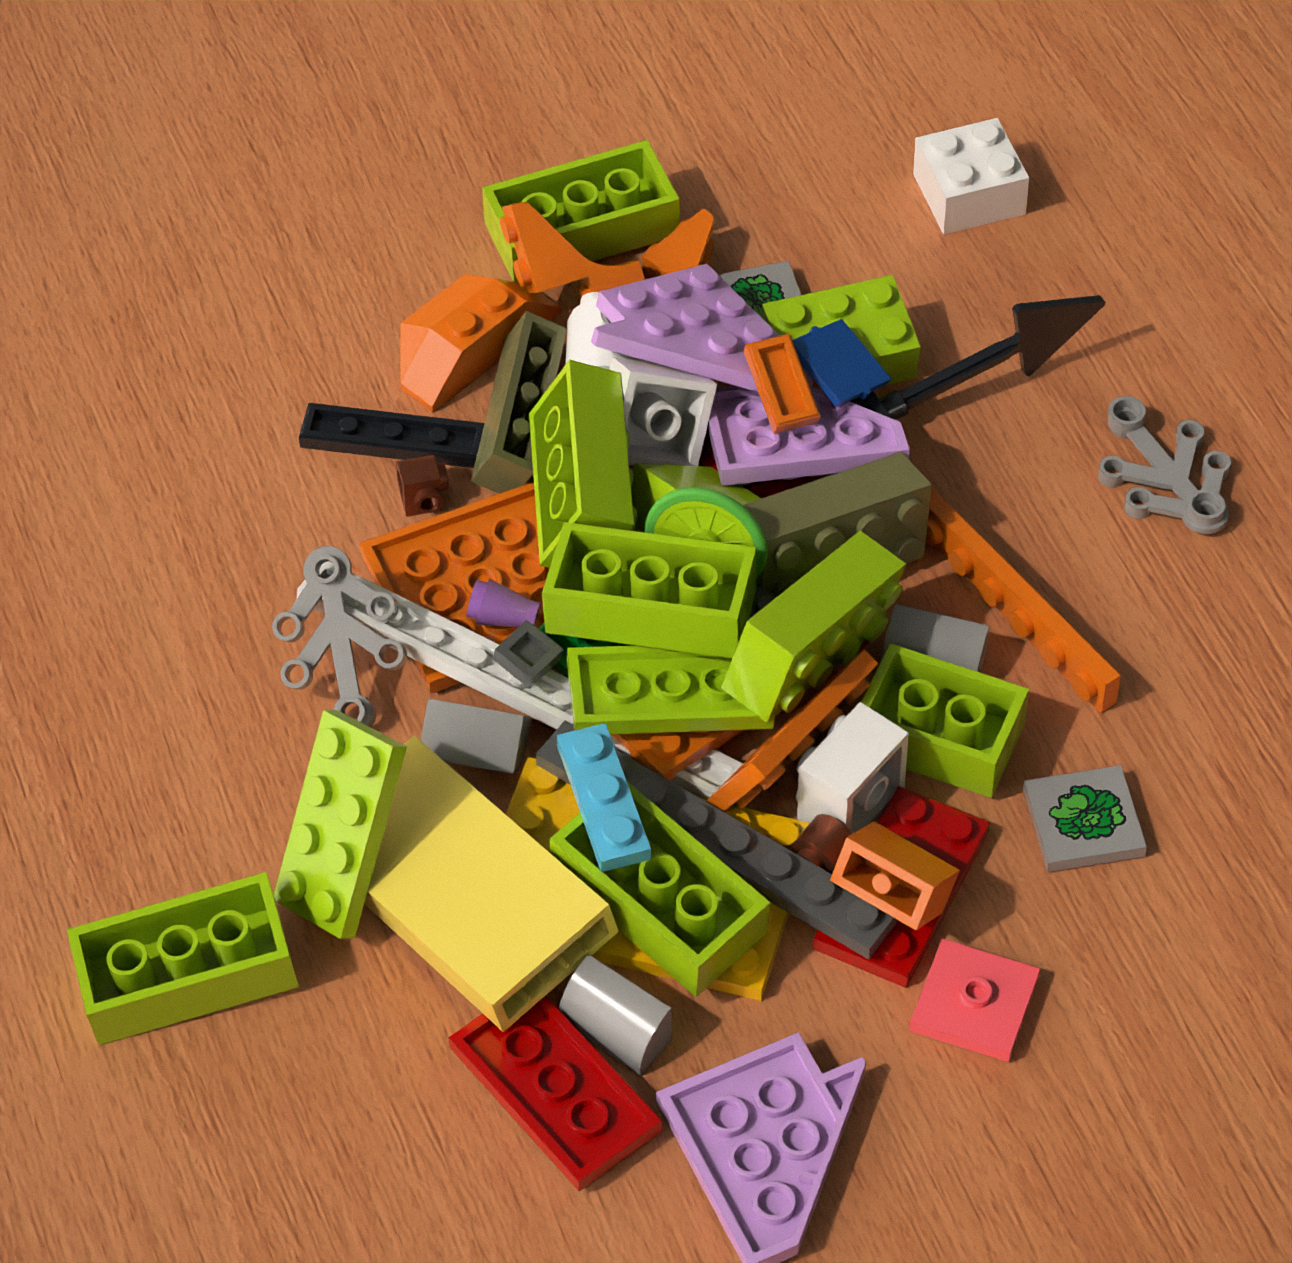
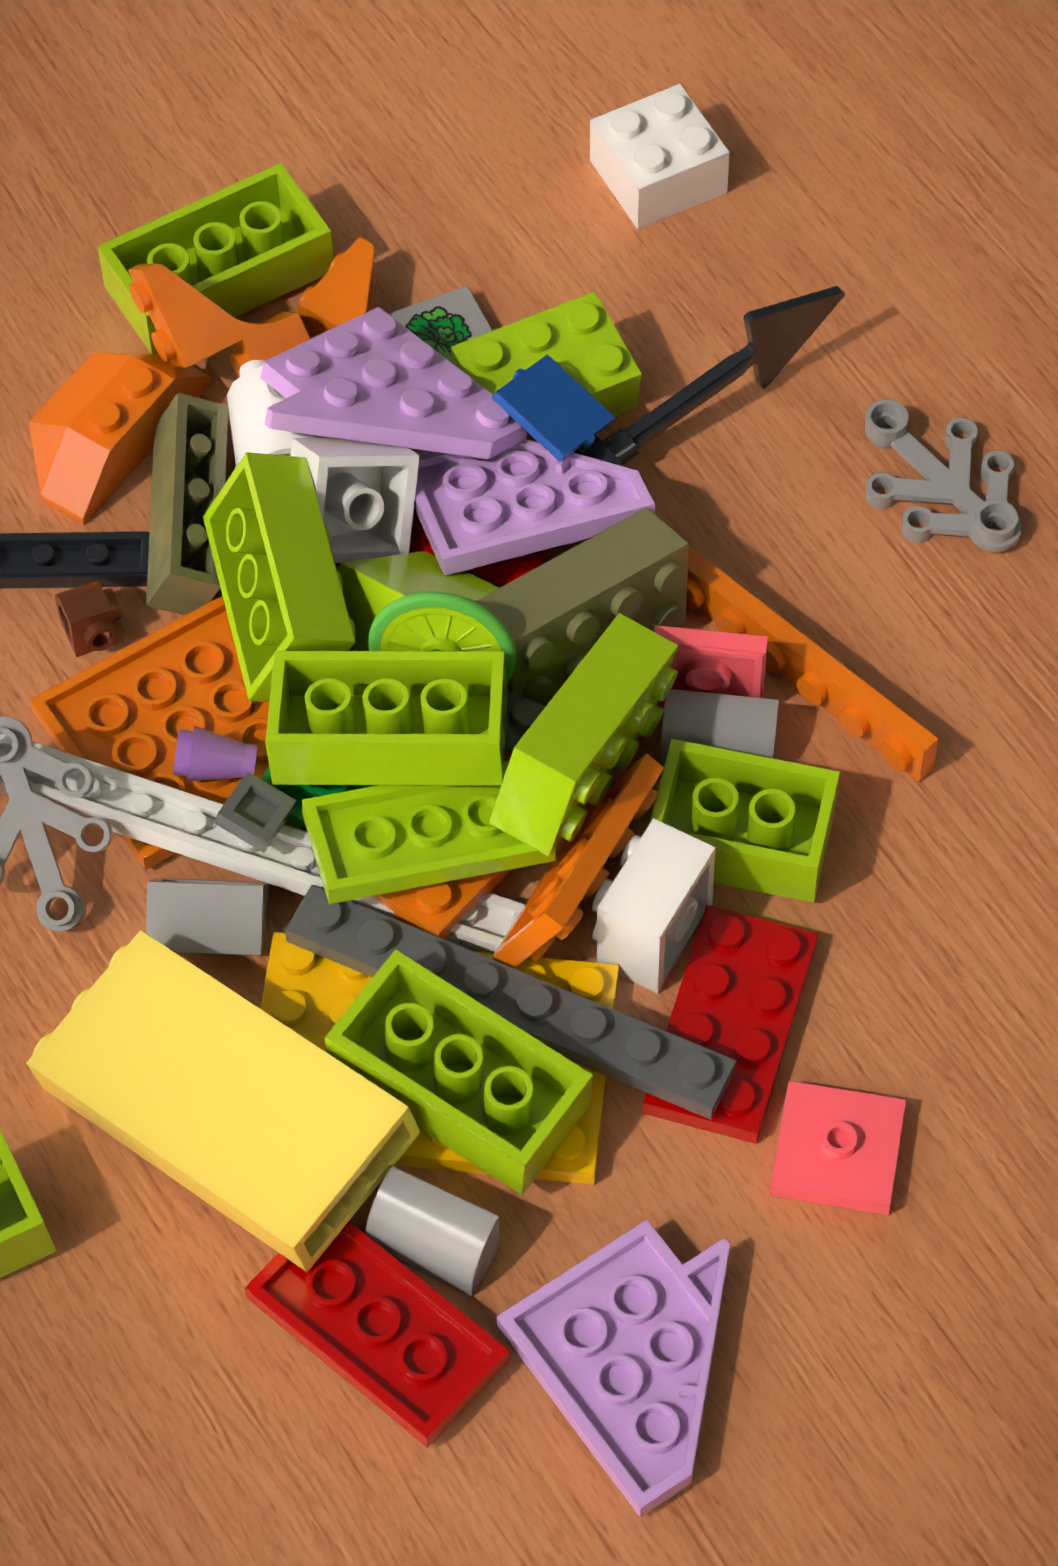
camera: 10 degrees left, 5 degrees up
(339, 823) = (74, 1053): lime plate -> none
(603, 797) = (379, 978): medium azure plate -> none
(781, 383) = (494, 444): orange tile -> none
(822, 841) = (641, 991): copper plate -> none
(894, 875) = (726, 1018): orange brick -> none
(940, 586) = (717, 661): none -> coral plate
(1084, 818) = (923, 912): light grey tile -> none

